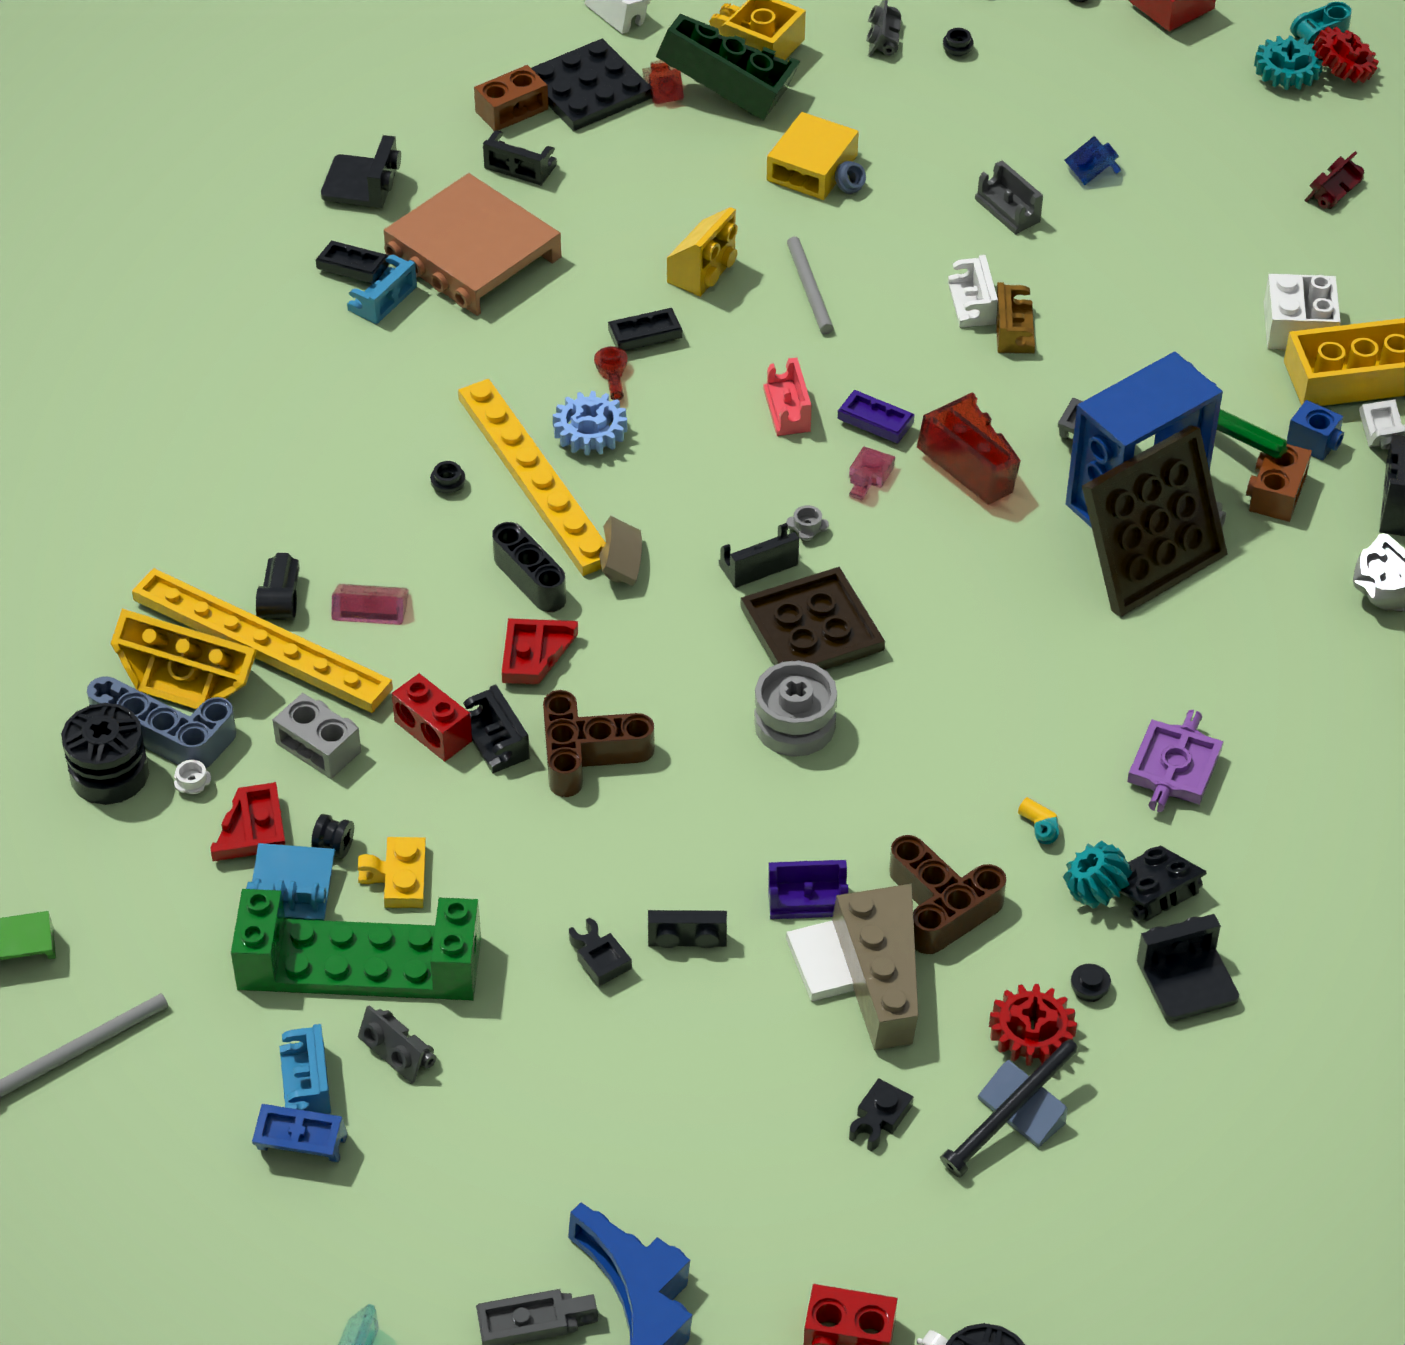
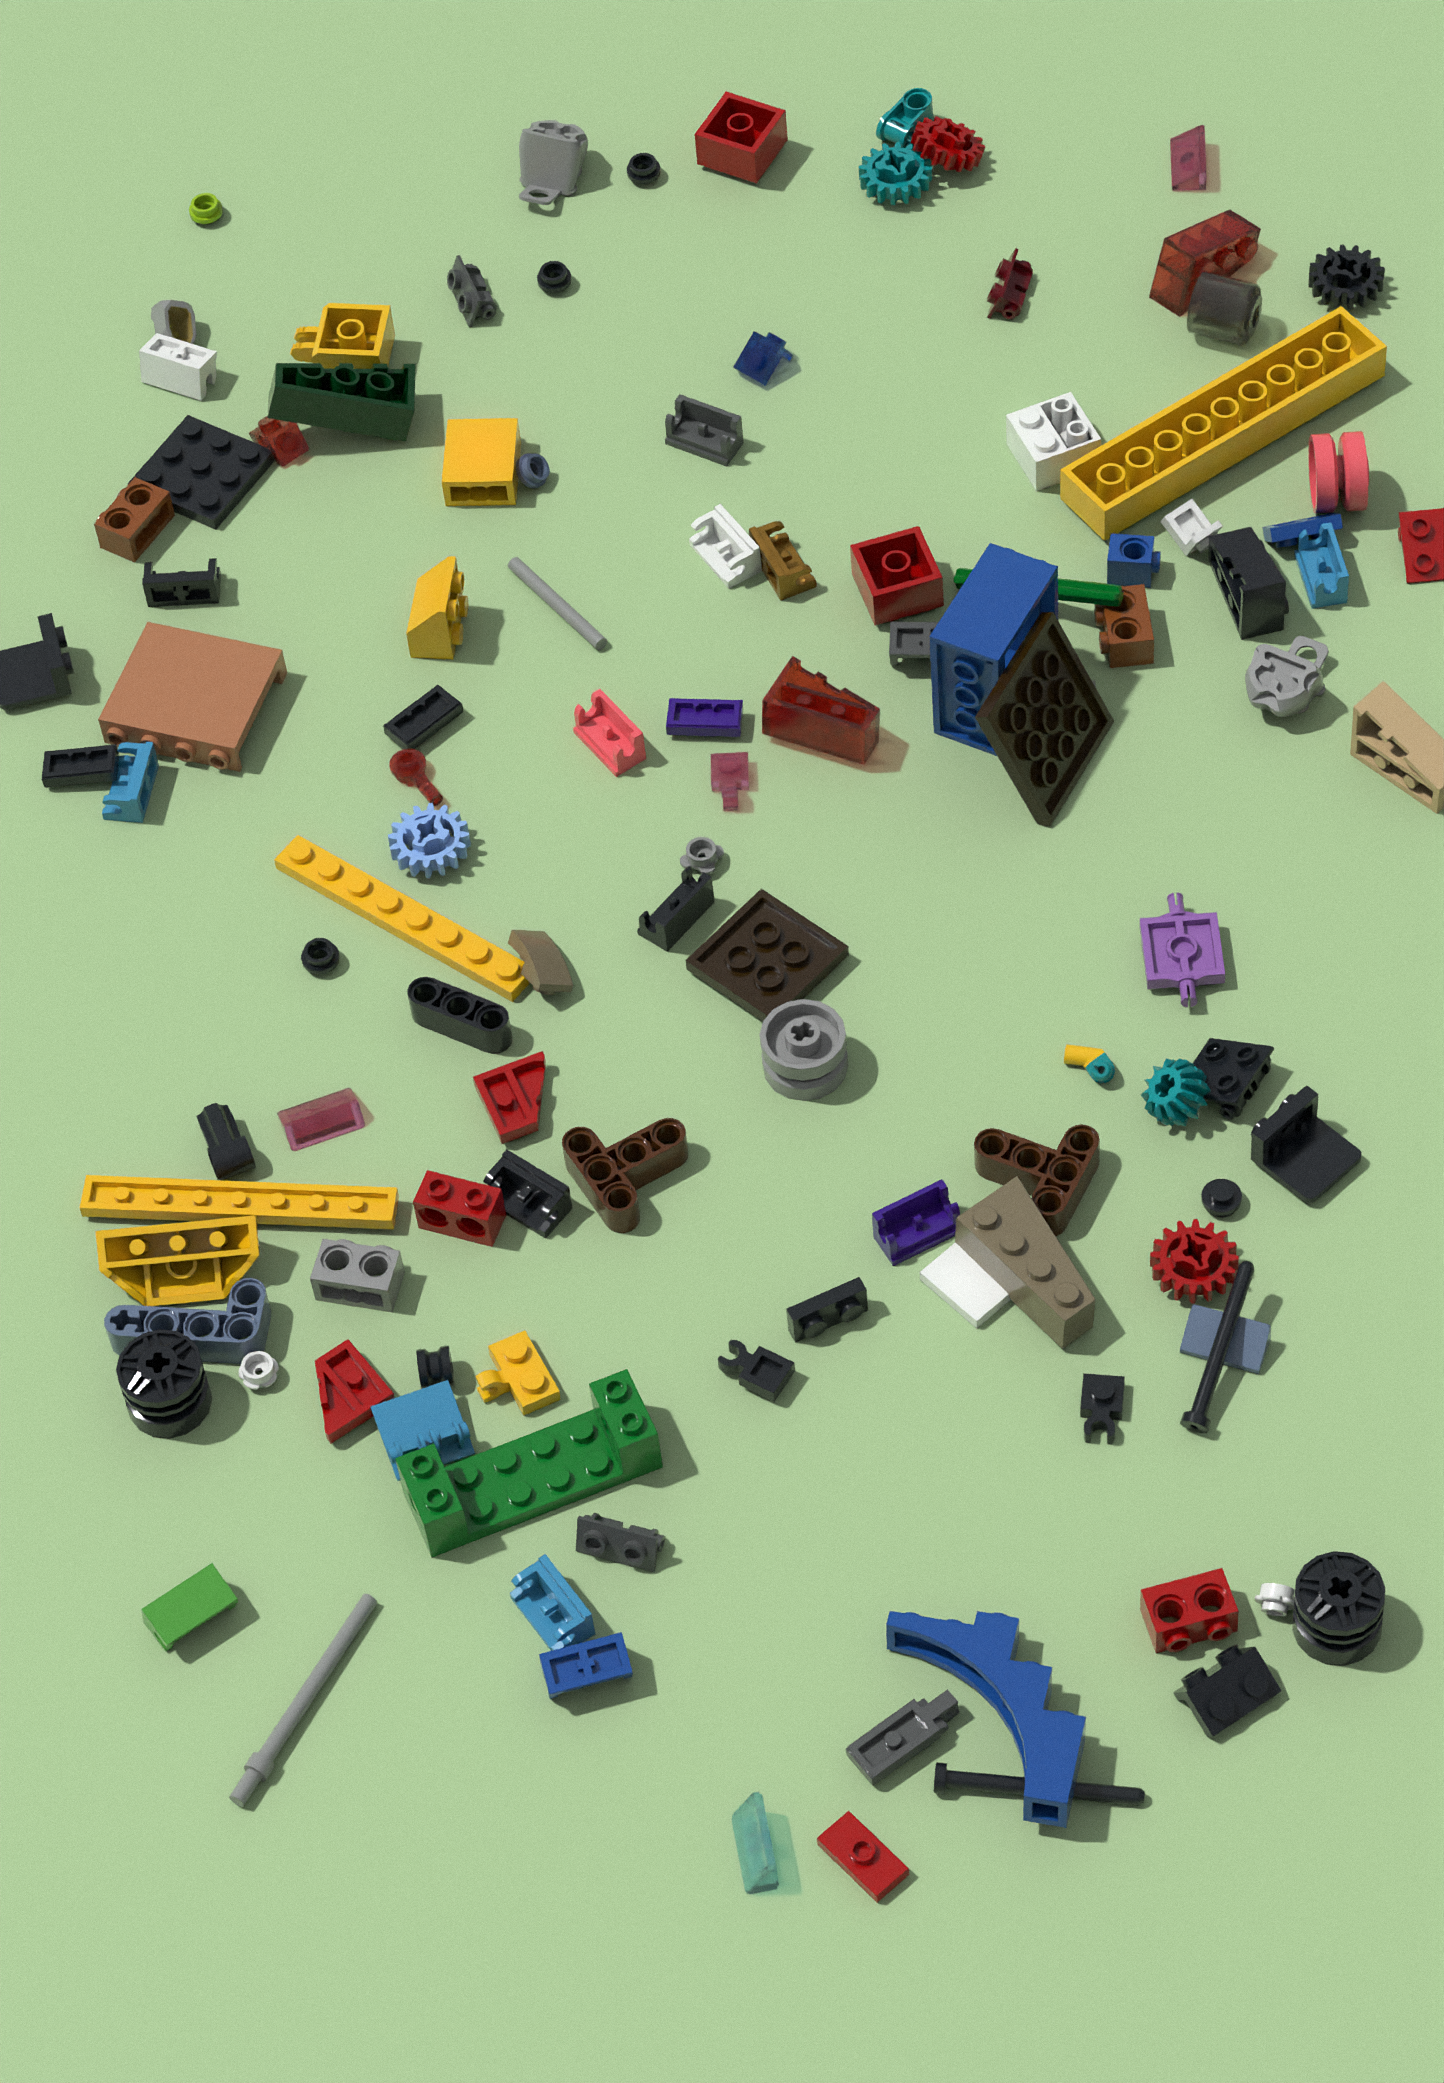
camera: 20 degrees left, 5 degrees up
(1099, 359) = (897, 575): none -> red brick

